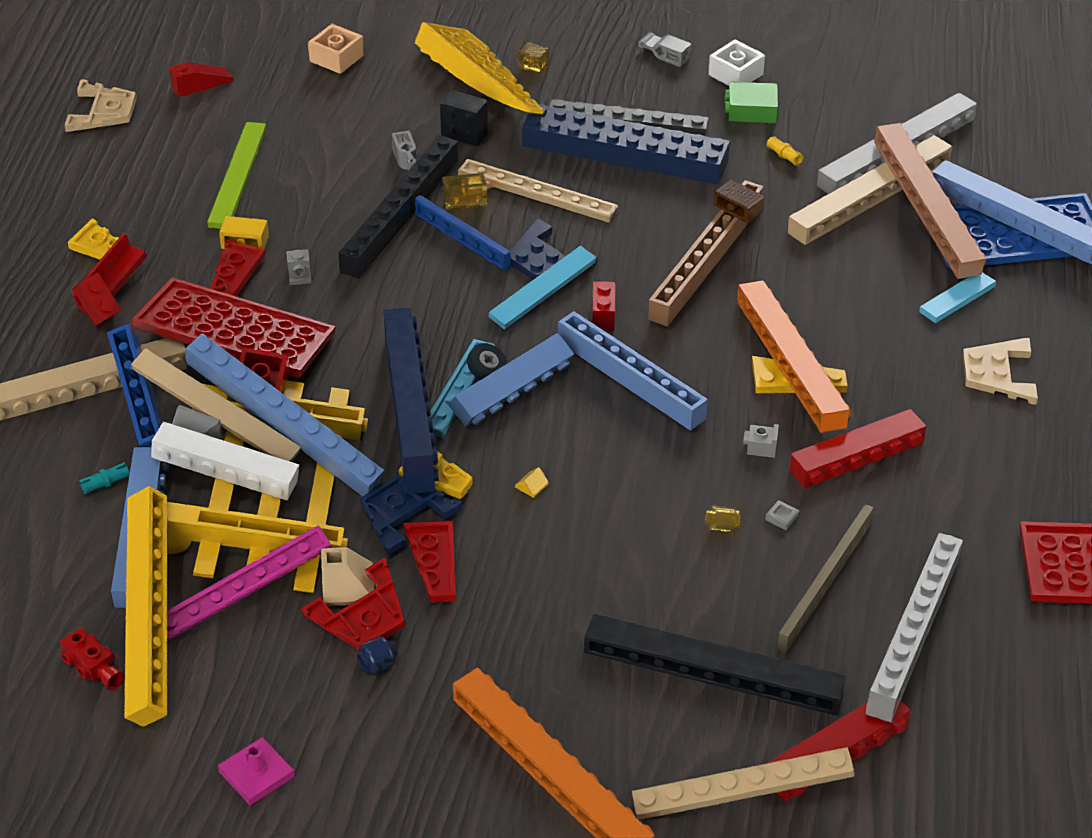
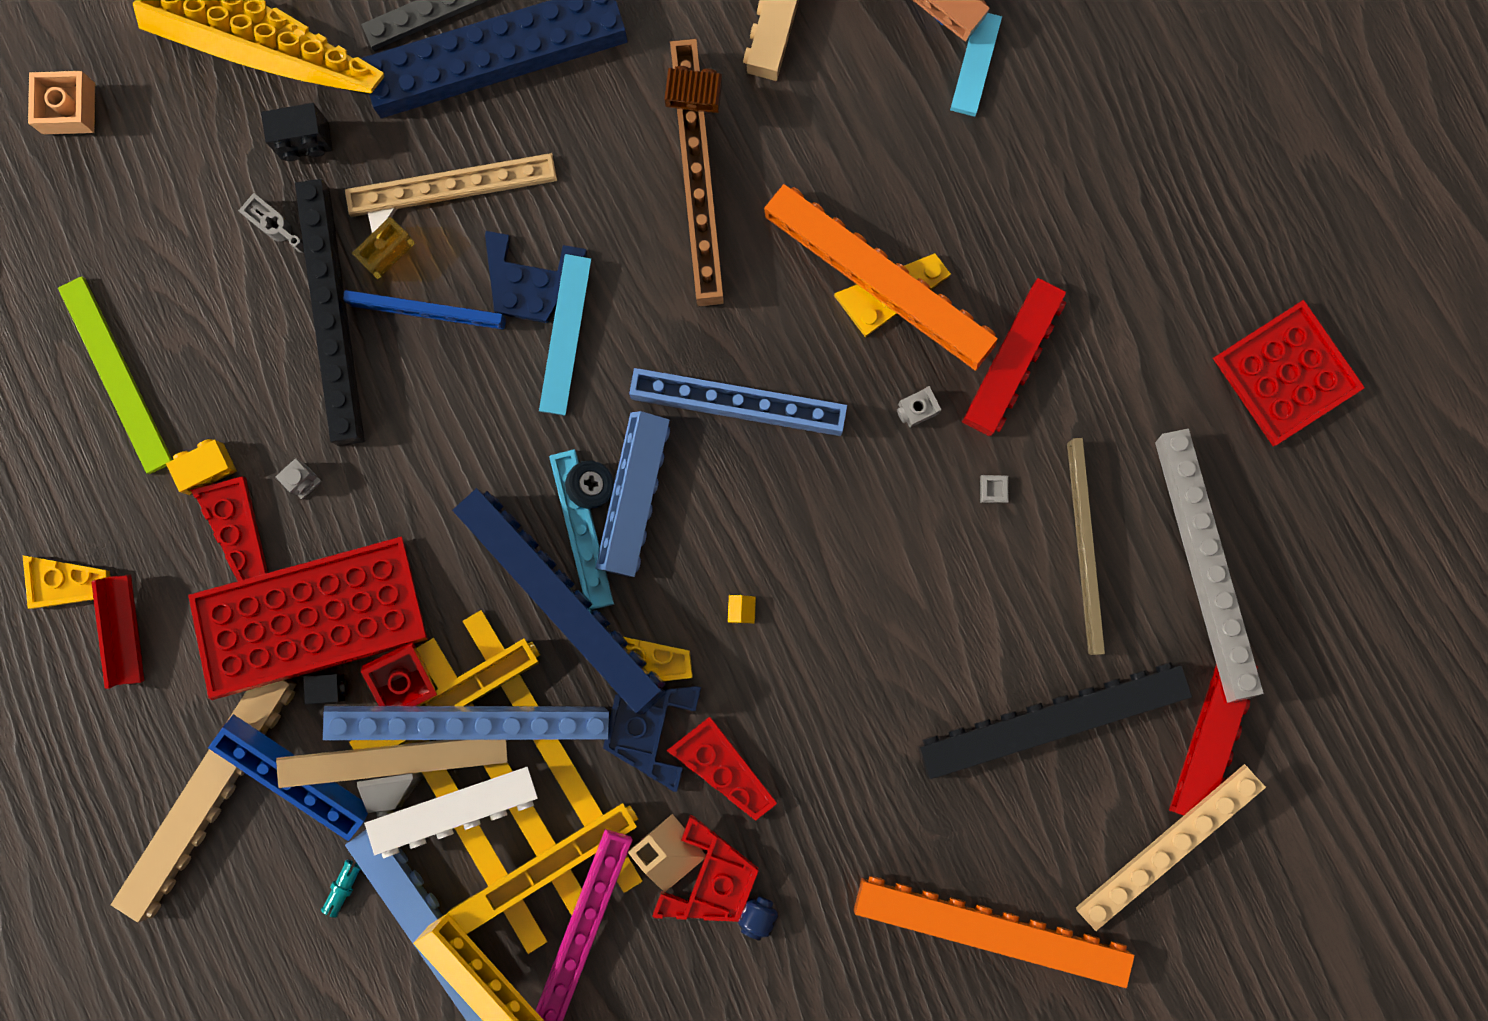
camera: 30 degrees left, 40 degrees up
(96, 299) = (137, 679): red brick -> none
(604, 305) = (646, 324): red brick -> none
(723, 518) = (948, 536): clear yellow brick -> none
(989, 369) = (1066, 154): tan wing -> none

